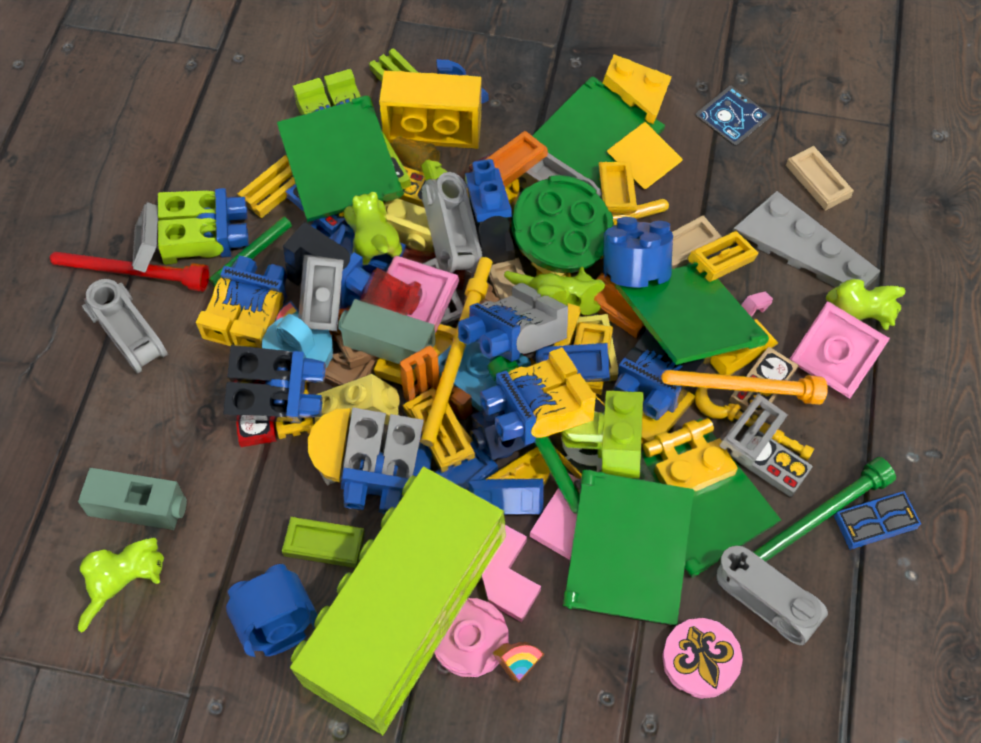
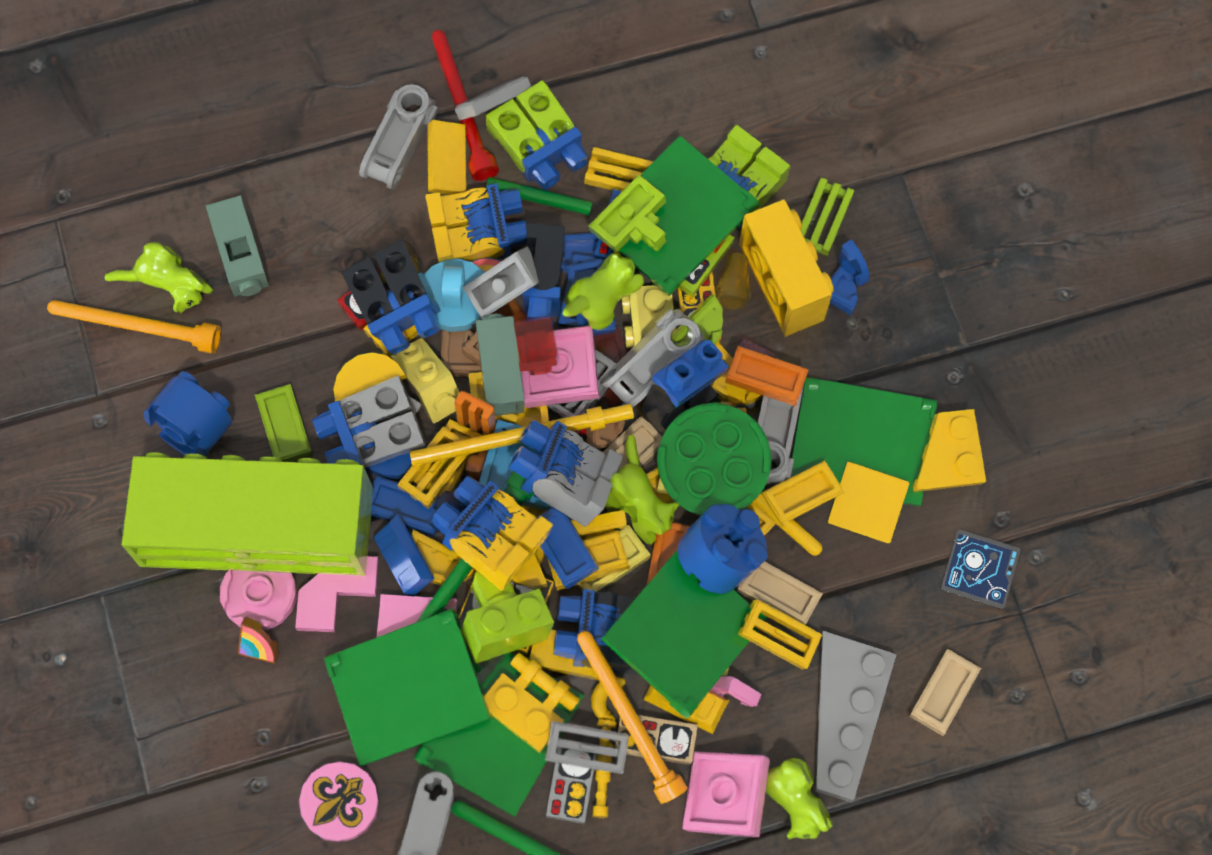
camera: 60 degrees right, 10 degrees up
(170, 298) = (446, 157): none -> yellow tile
(196, 571) = (204, 336): none -> light orange piece
(325, 181) = (631, 217): none -> lime hinge

